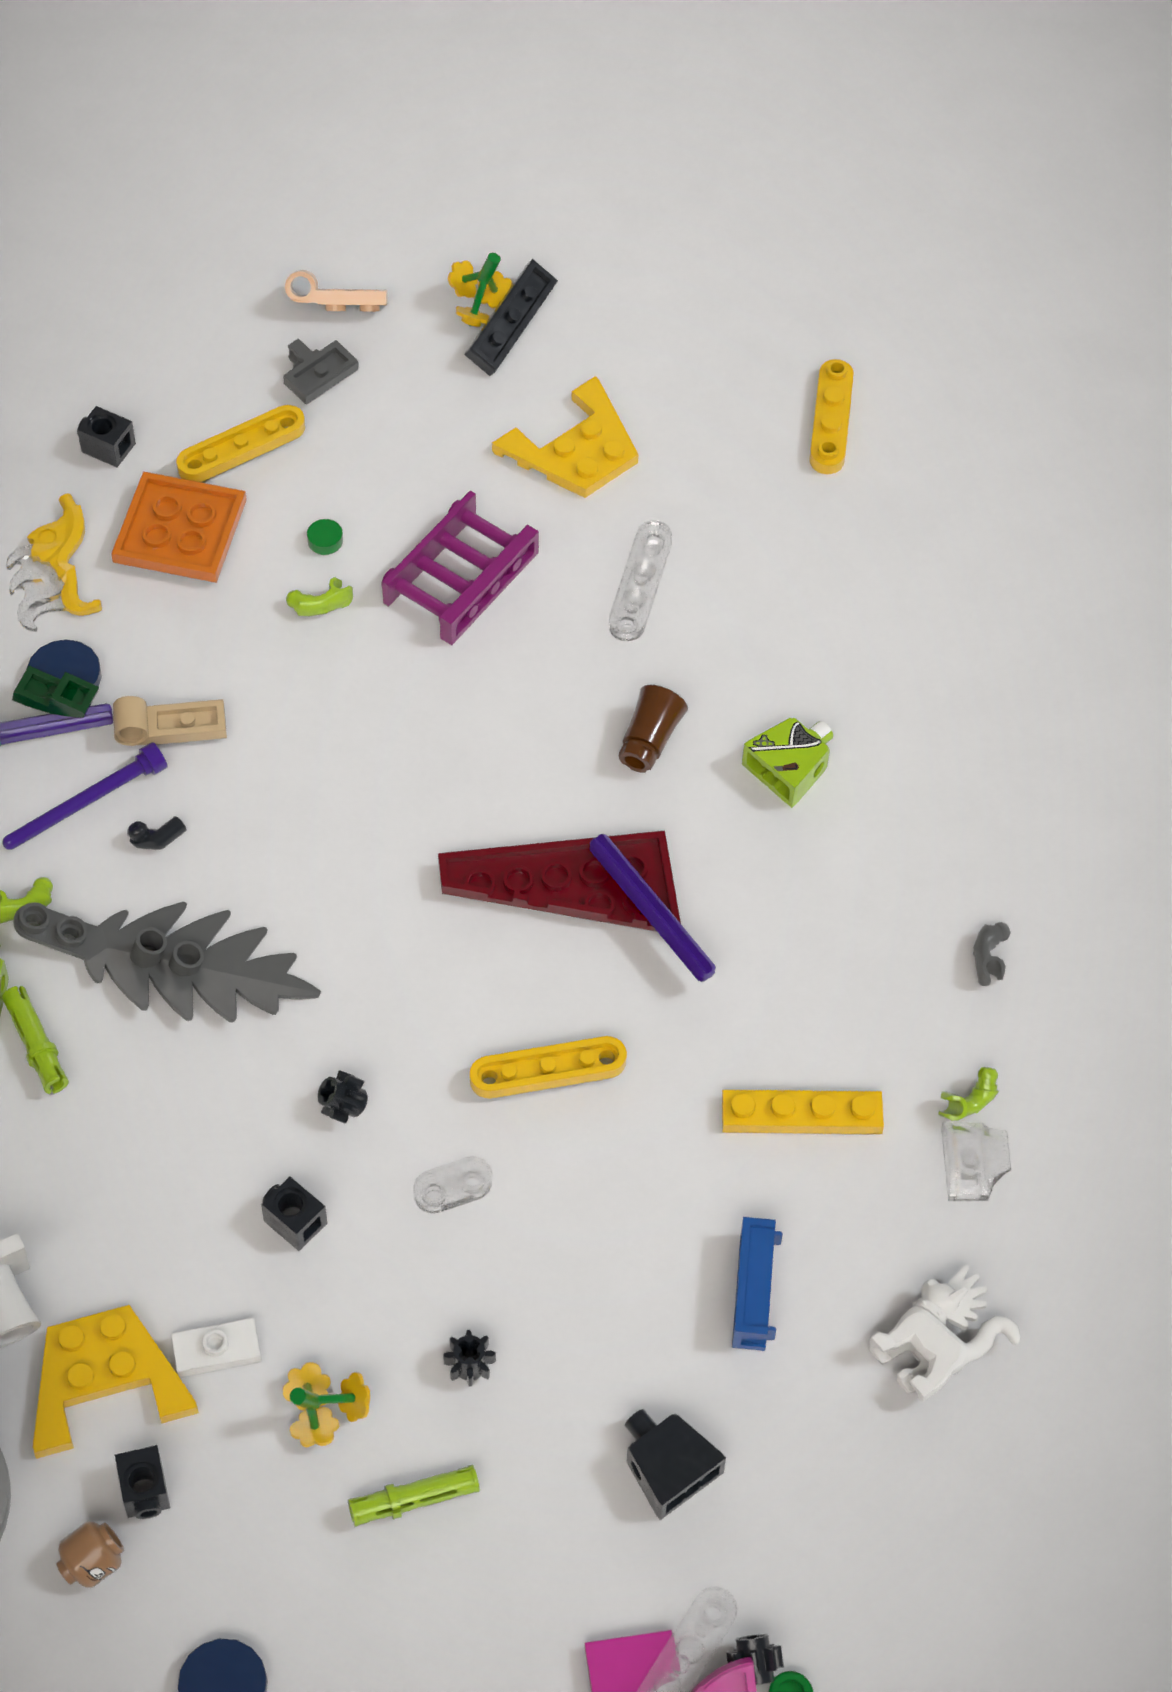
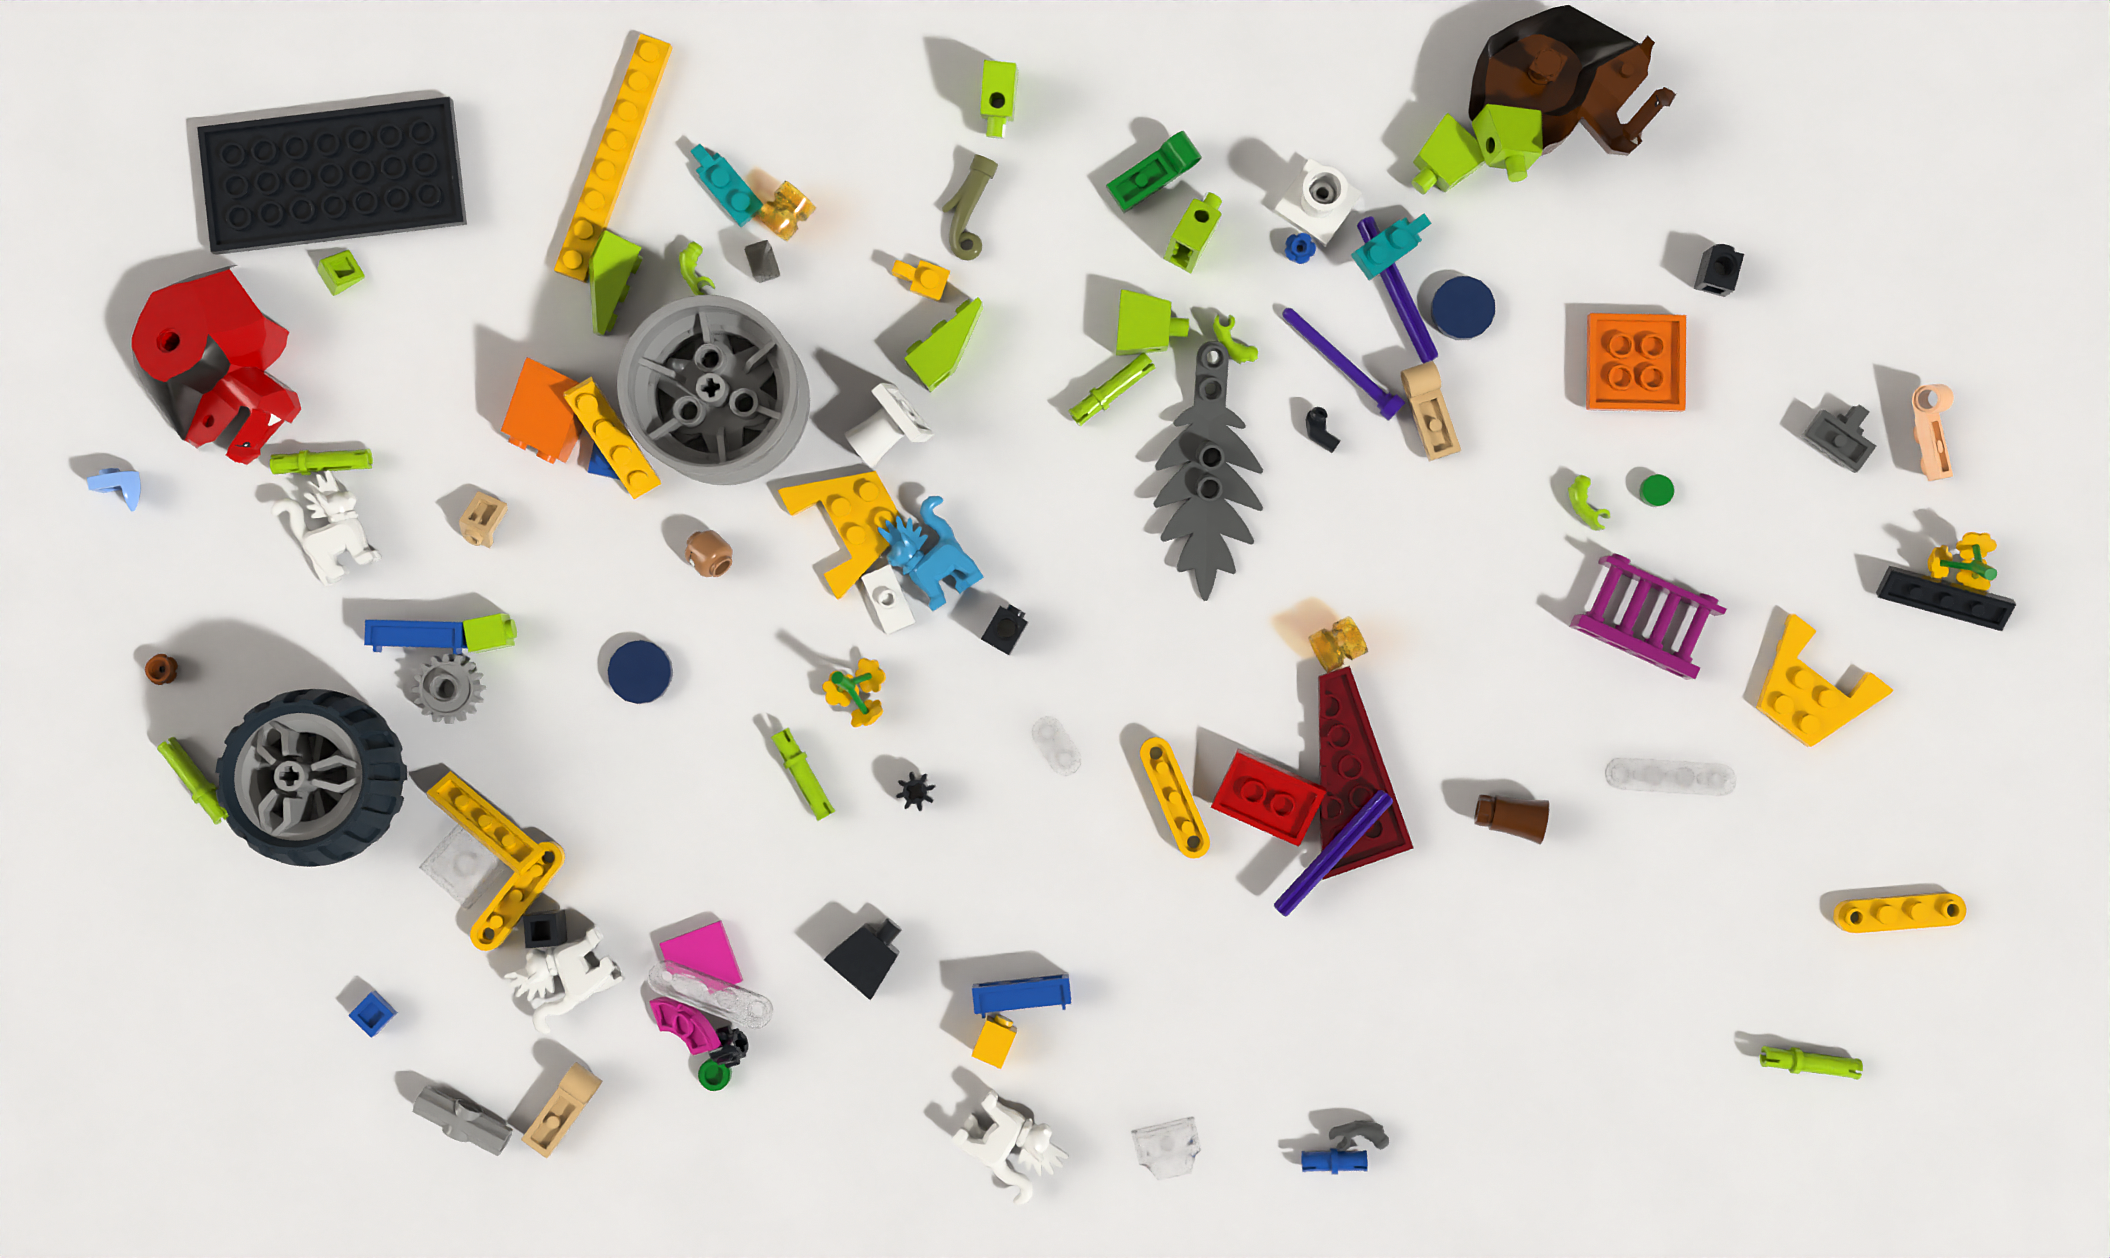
camera: 85 degrees right, 30 degrees up
(46, 571) = (1569, 258): piece -> none
(57, 696) = (1432, 309): dark green slope -> none
(137, 1466) = (783, 579): black brick -> none
(185, 1266) = (942, 560): none -> dark azure animal
(241, 443) = (1740, 391): yellow plate -> none
(342, 1096) = (1110, 643): black gear -> none
(409, 859) = (1327, 648): none -> clear yellow wheel
(571, 965) = (1268, 797): none -> red plate
(789, 757) = (1512, 940): lime torso -> none
(802, 1111) = (1181, 1005): yellow plate -> none
(807, 1326) = (995, 1040): none -> yellow brick
(973, 527) = (1797, 1061): none -> lime pin
(981, 1095) = (1211, 1131): lime piece -> none
(1017, 983) = (1334, 1161): none -> blue pin

